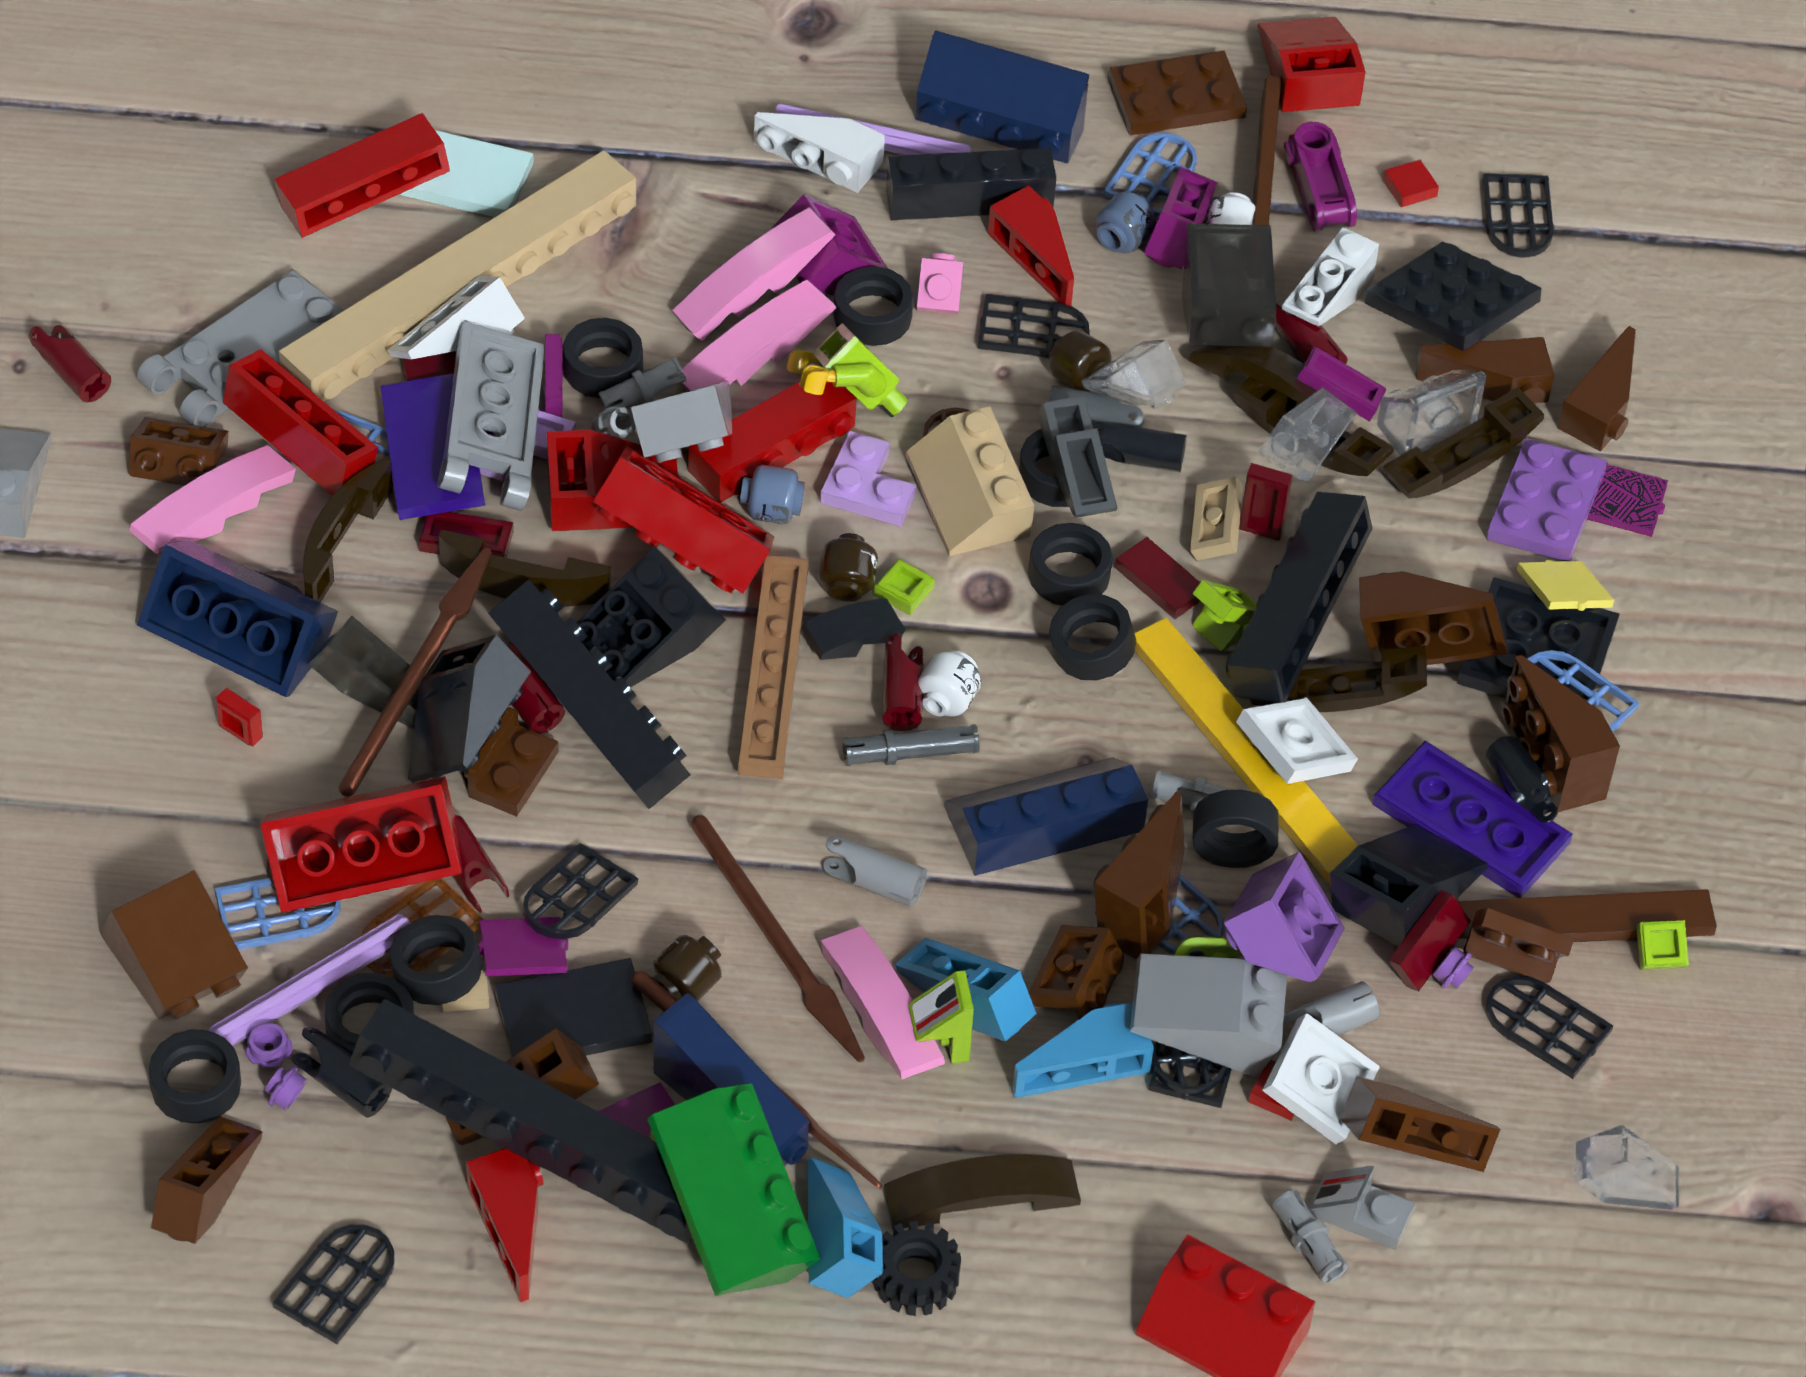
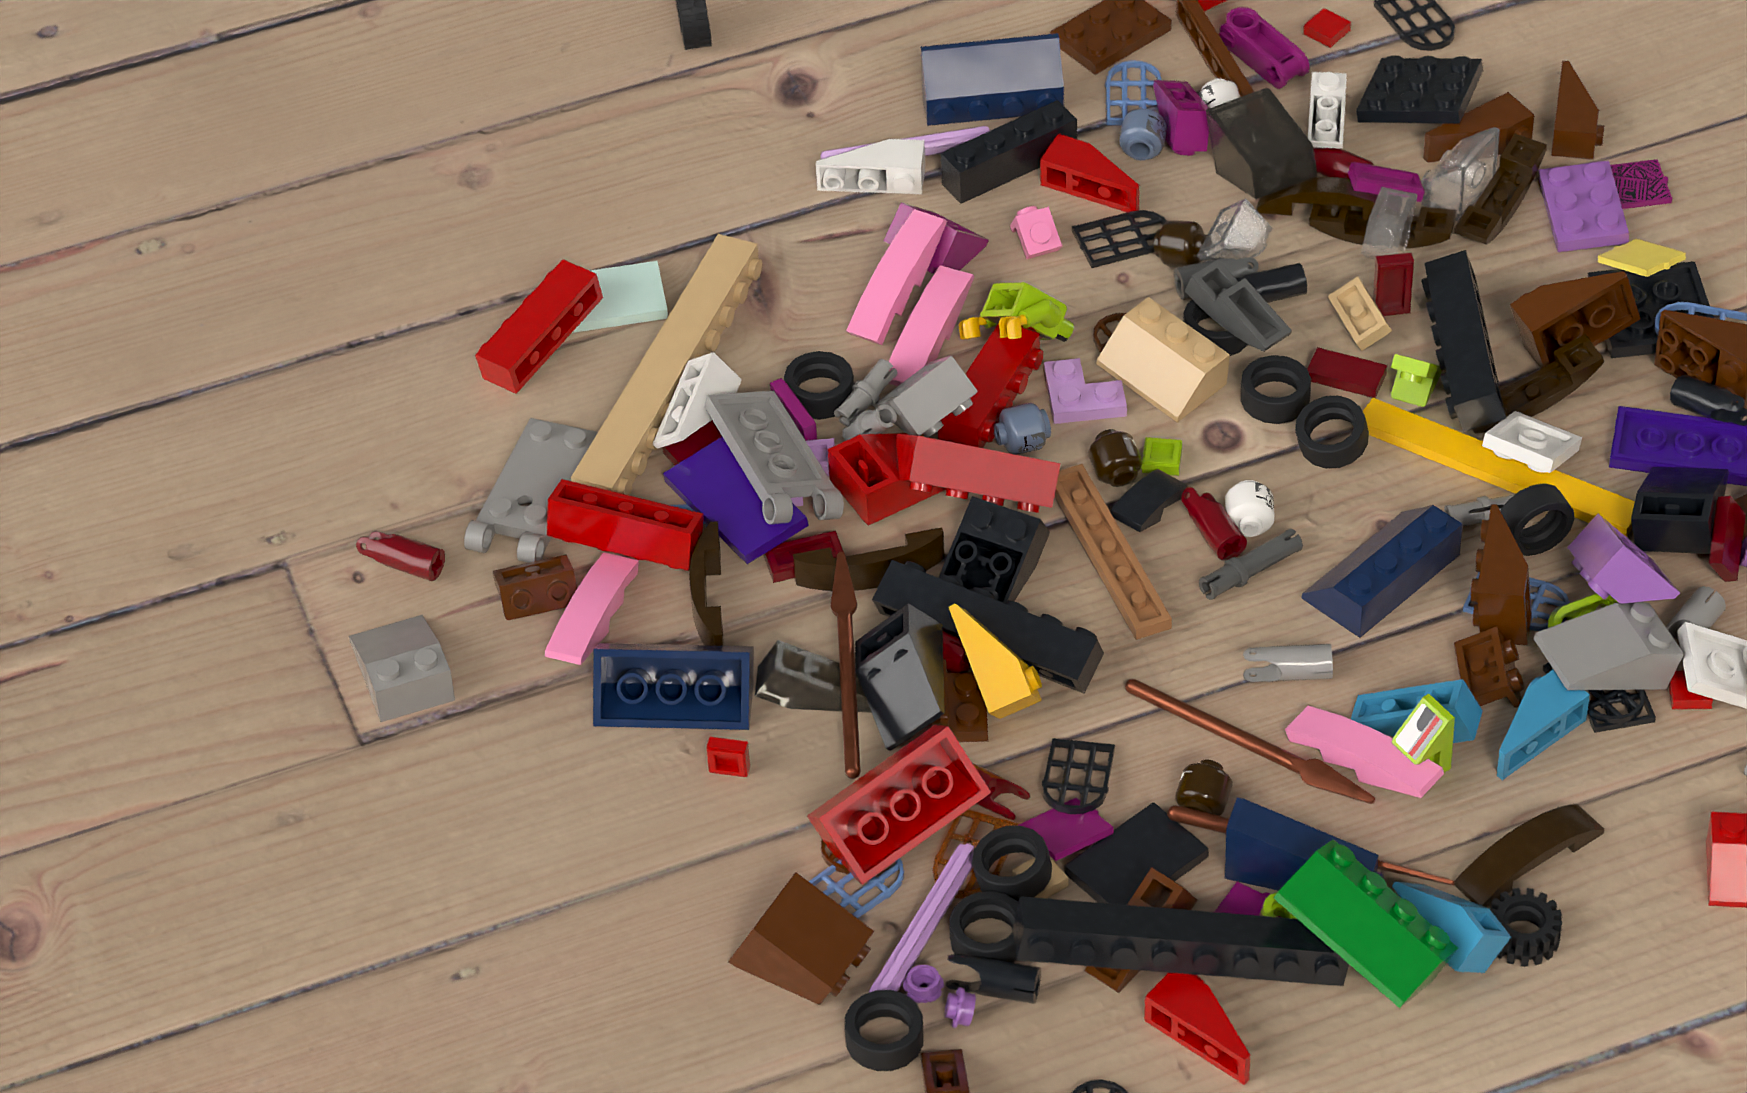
camera: 20 degrees left, 5 degrees down
(559, 742) = (1001, 675): none -> yellow slope
(875, 282) = (996, 248): black tyre -> none

